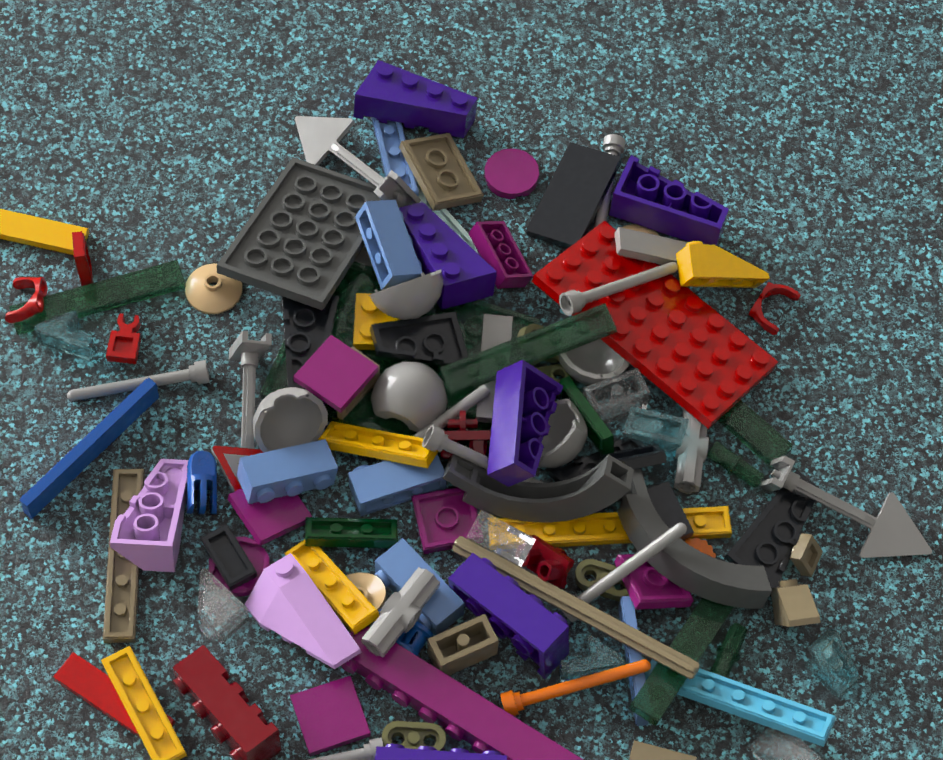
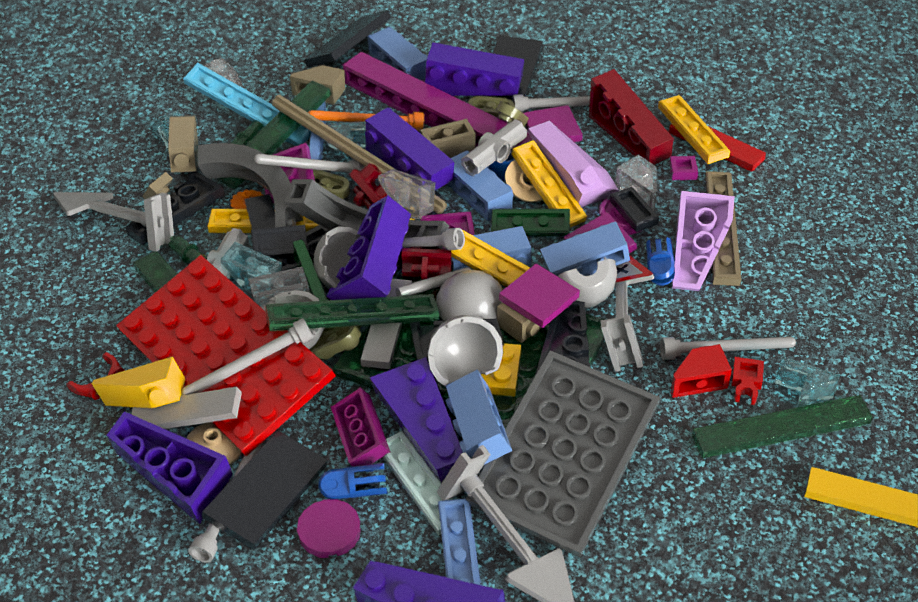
camera: 170 degrees left, 15 degrees down
(35, 303) = (844, 426): red cap -> none
(82, 258) = (804, 437): red tile -> none
(89, 448) = (763, 292): blue tile -> none
(162, 640) = (683, 168): none -> magenta plate
(171, 341) = (702, 372): none -> red slope
(210, 298) = (666, 434): tan dish -> none
(384, 695) = (510, 113): none -> olive plate
(441, 171) = (410, 526): dark tan tile -> none
(497, 207) = (342, 482): none -> blue arm

